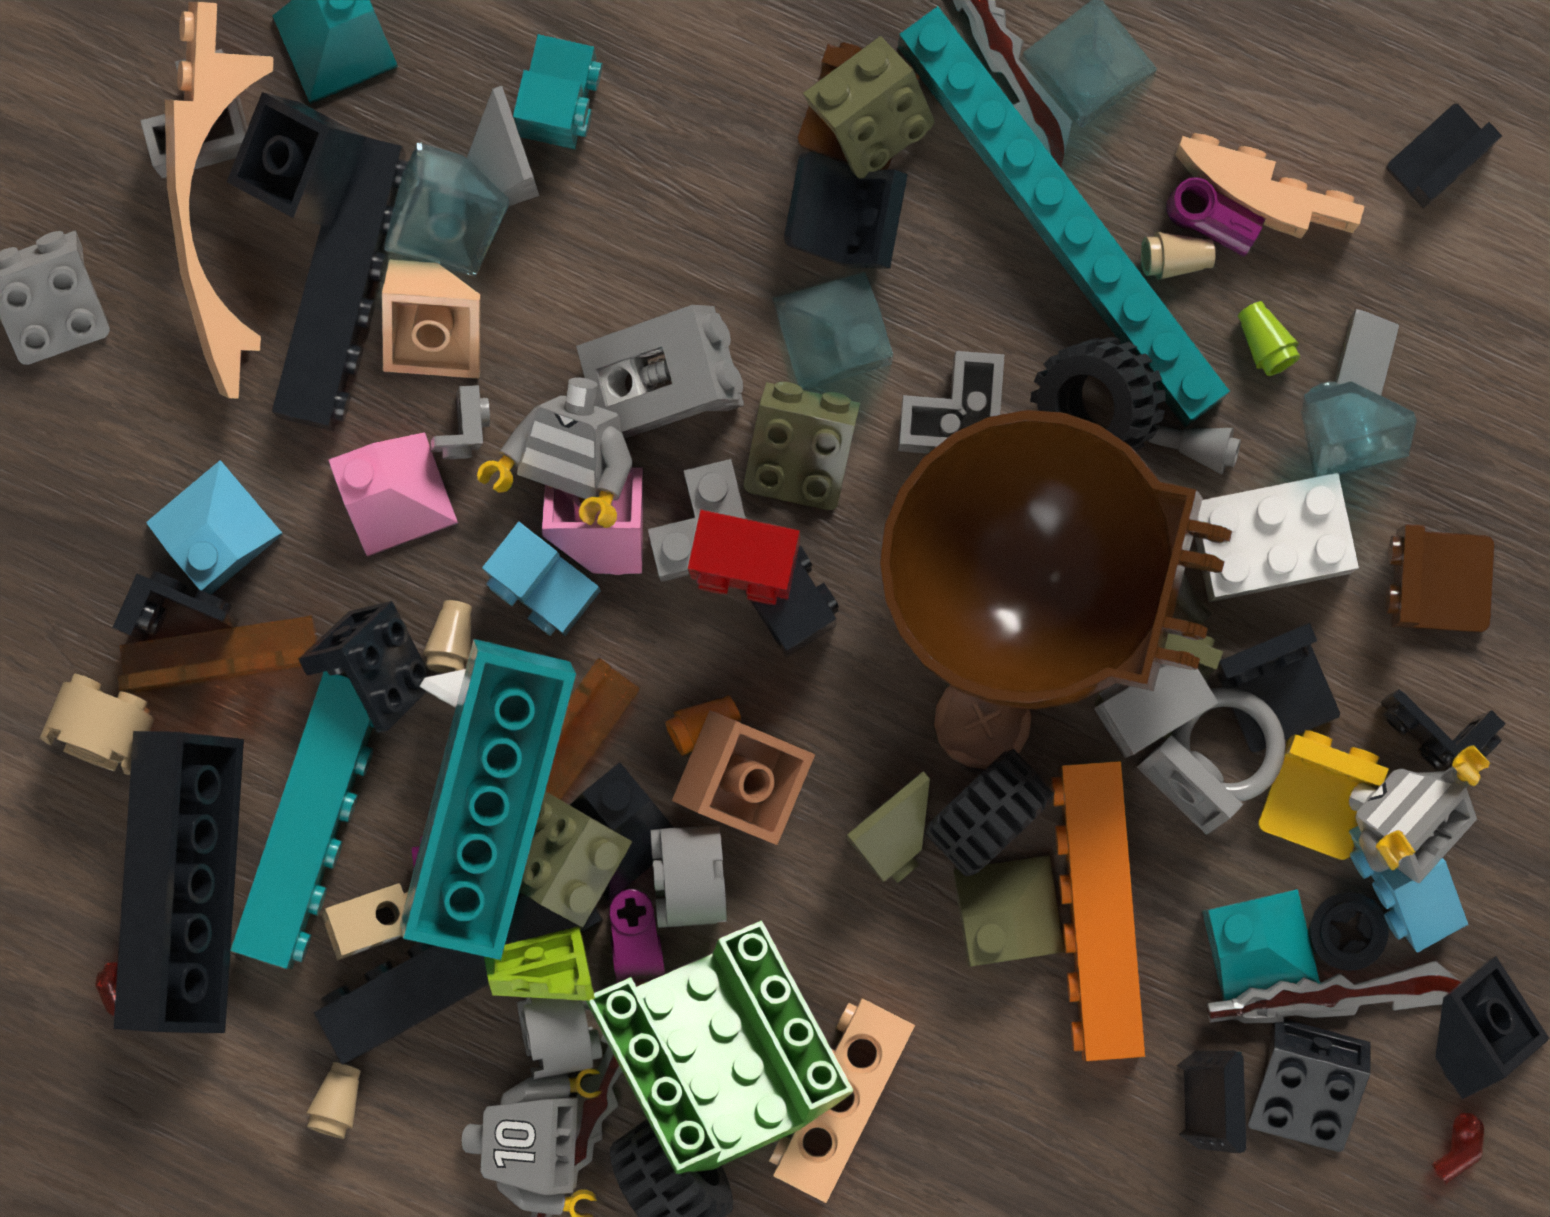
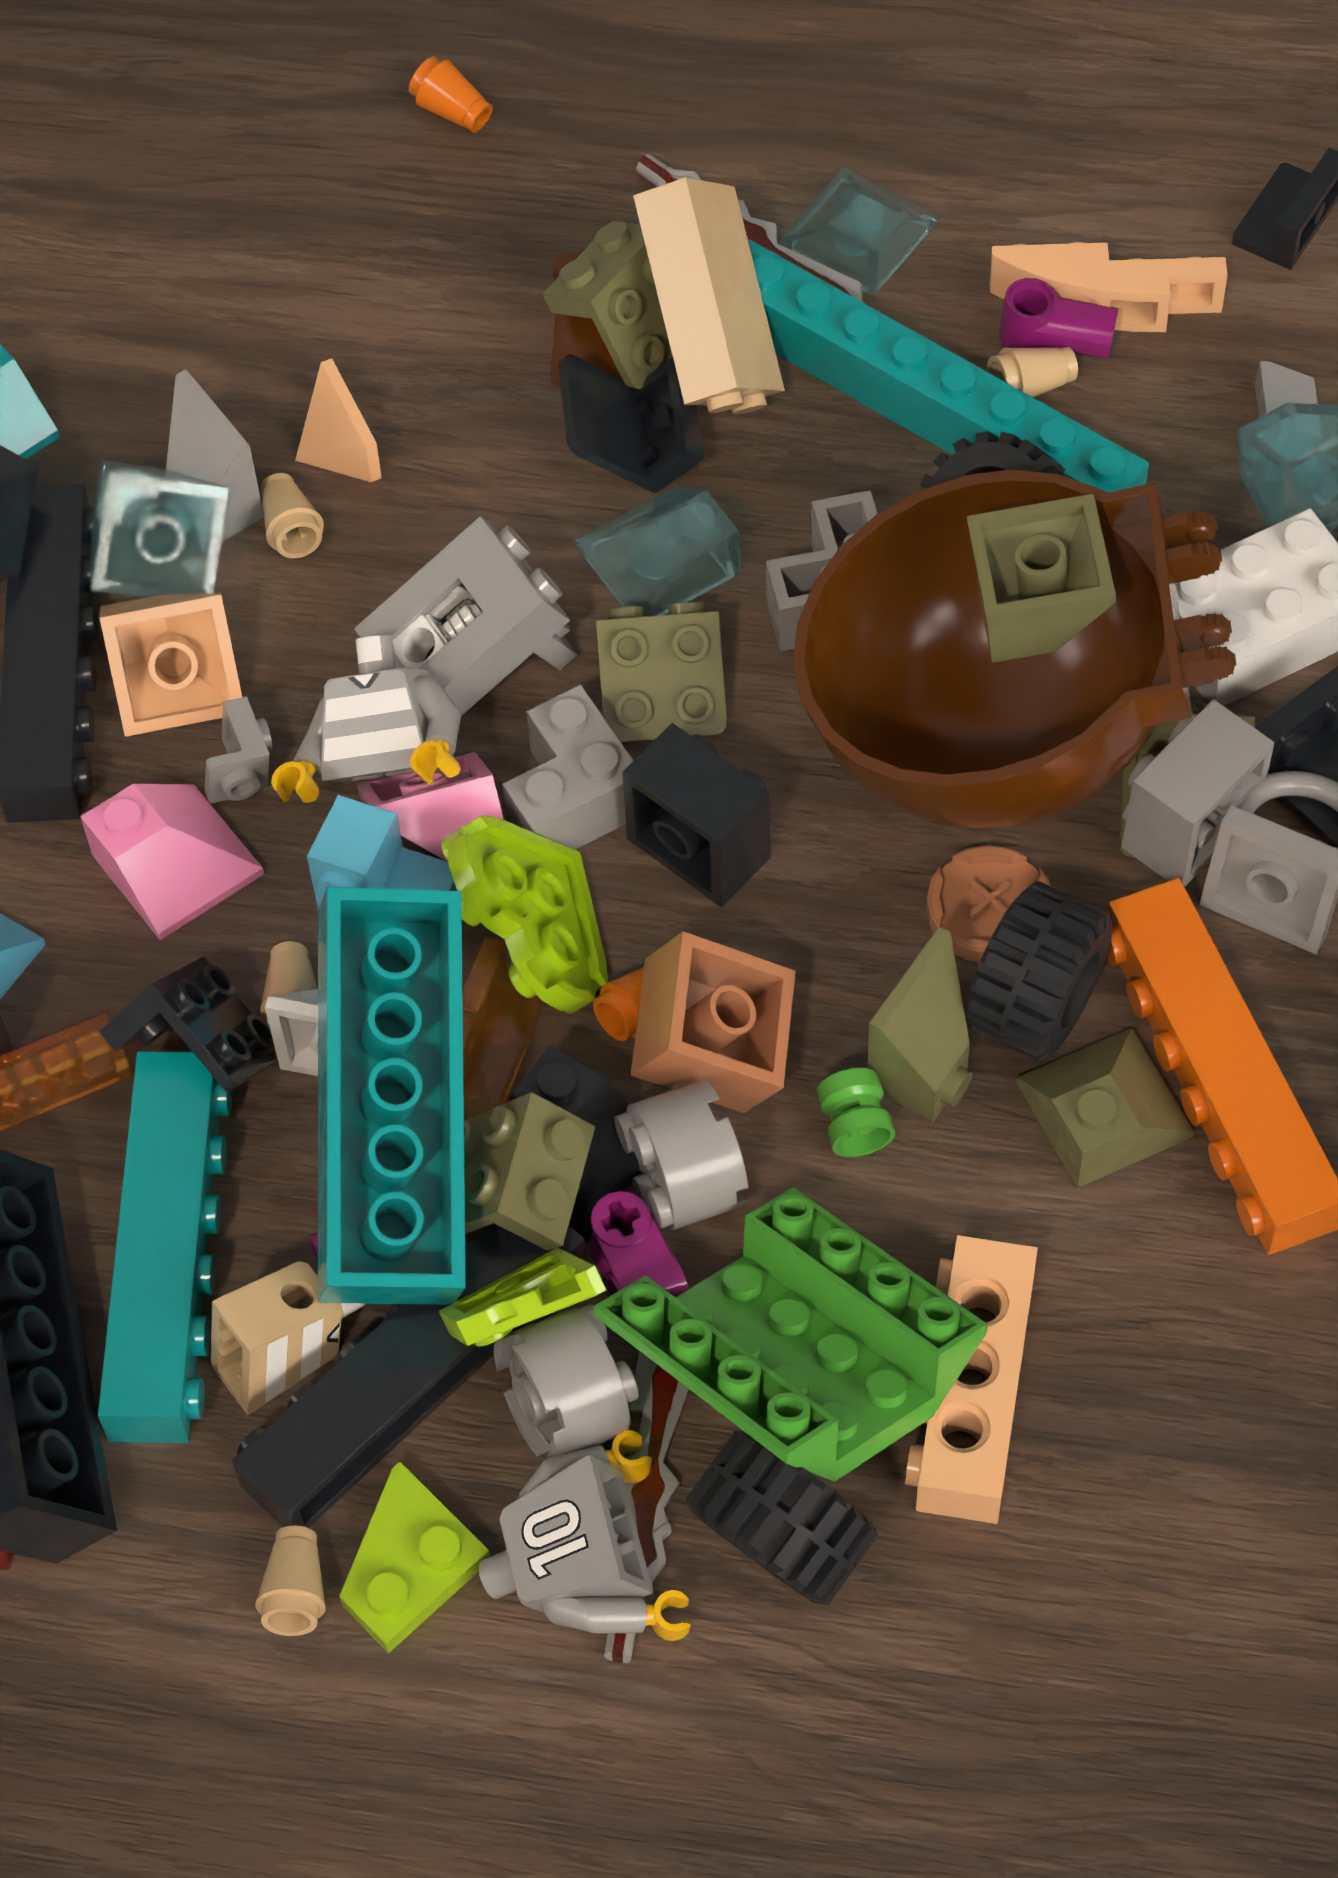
camera: 15 degrees left, 25 degrees down
(418, 1105) = (408, 1561): none -> lime wing
(555, 90) = (255, 390): teal brick -> none
(556, 211) = (289, 518): none -> tan cone
(612, 139) = (335, 430): none -> light nougat slope
(643, 637) = (534, 900): none -> lime plate
(743, 557) = (631, 724): red brick -> none
(826, 856) = (855, 1112): none -> bright green wheel
(934, 137) = (709, 295): none -> tan brick
(1085, 530) = (1040, 574): none -> olive slope
(1268, 339) = (1173, 425): lime cone -> none

